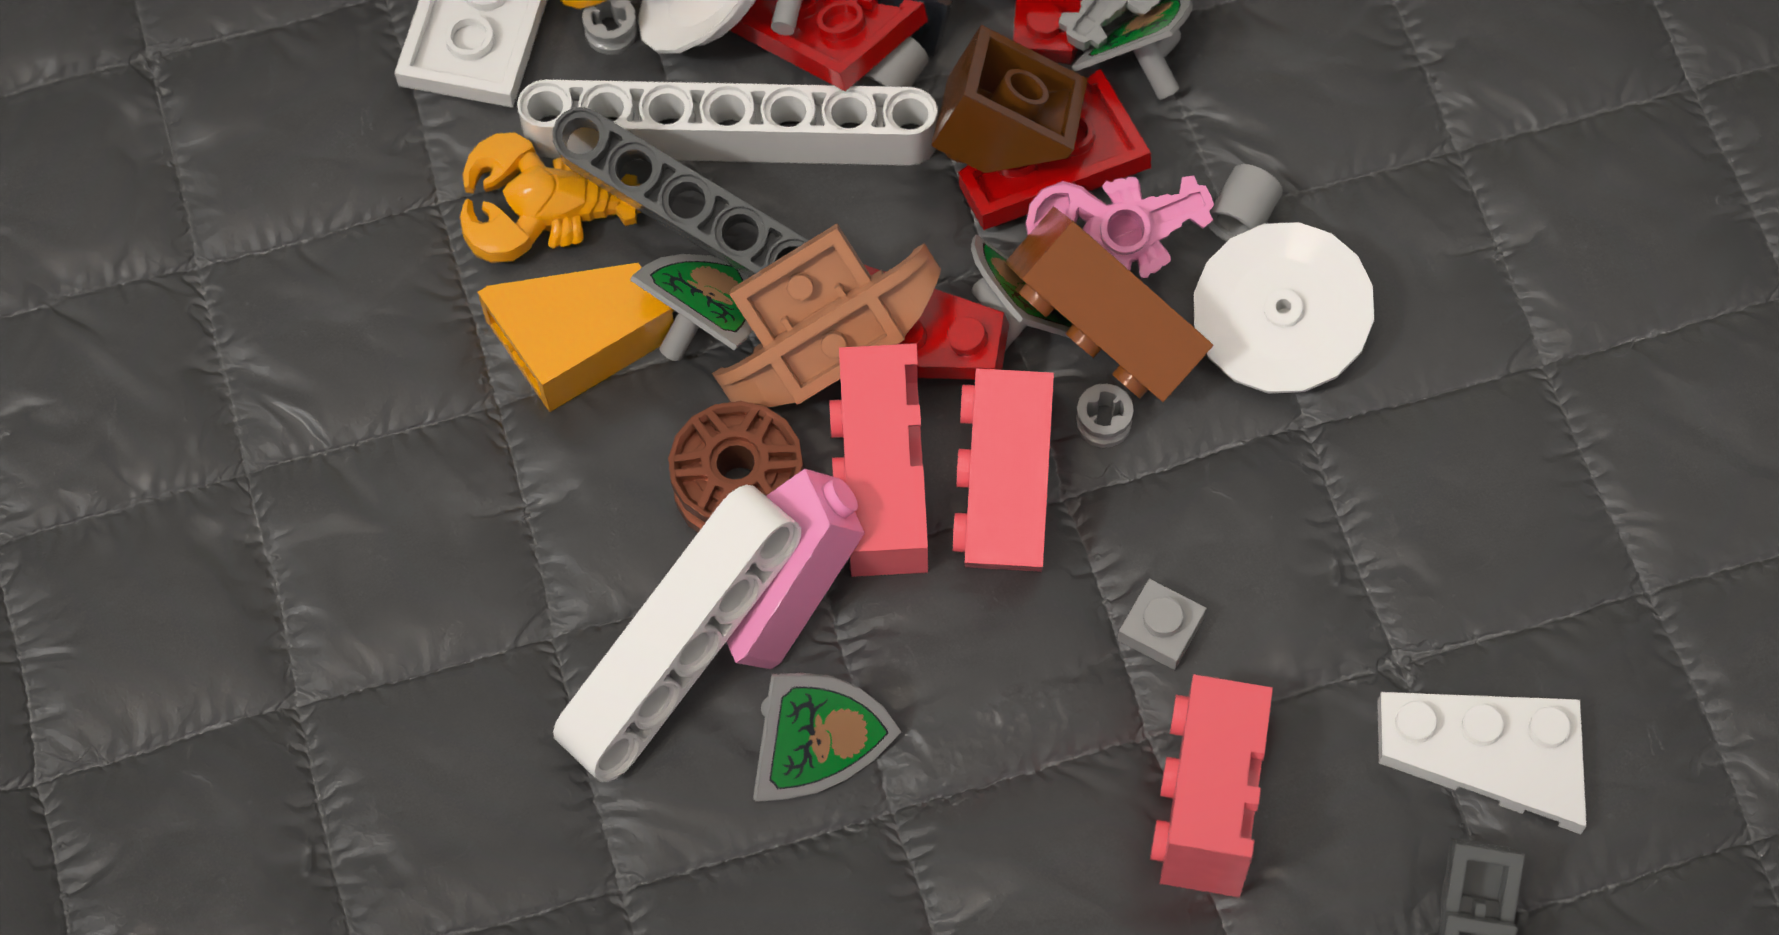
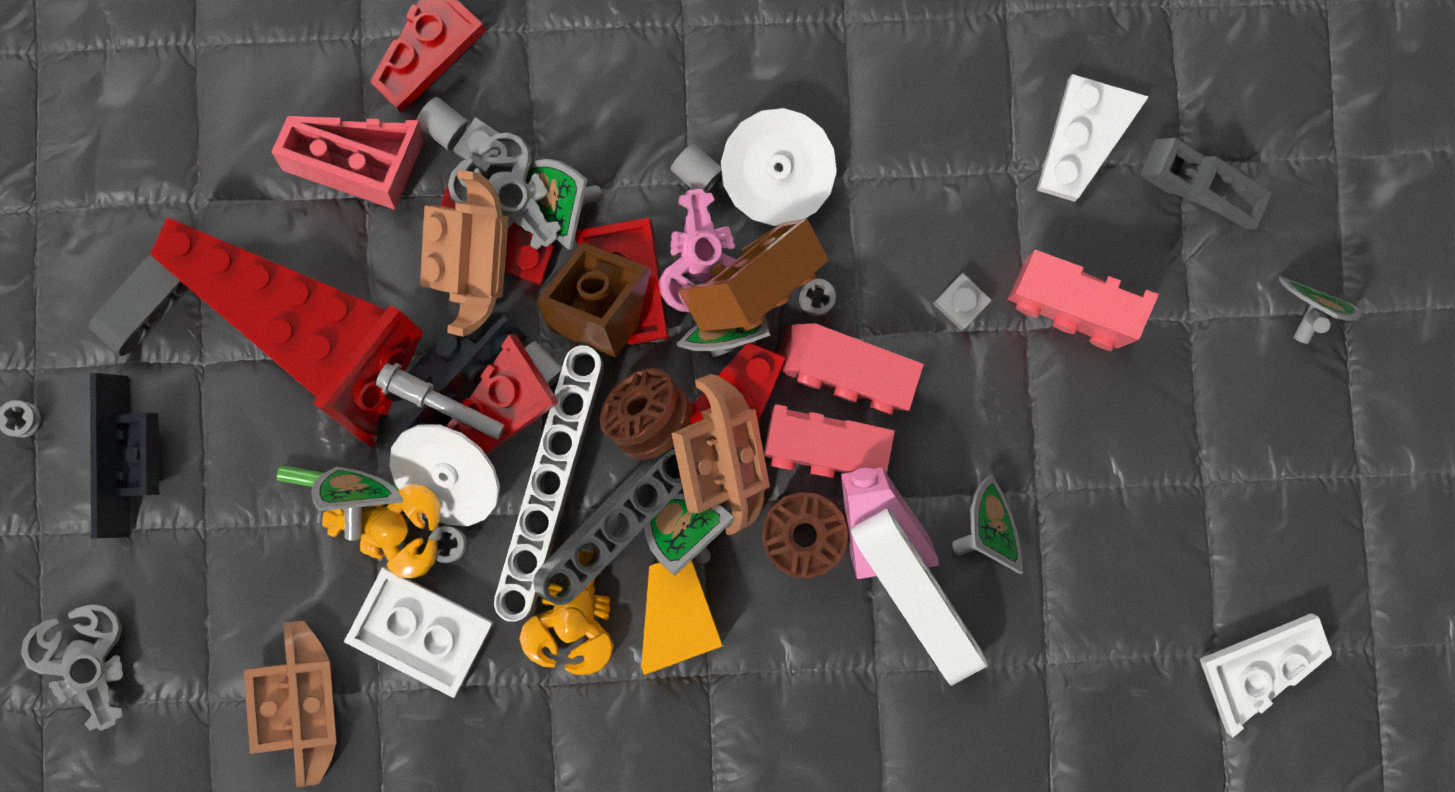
camera: 85 degrees left, 20 degrees up
(864, 200) = (644, 413): none -> copper wheel

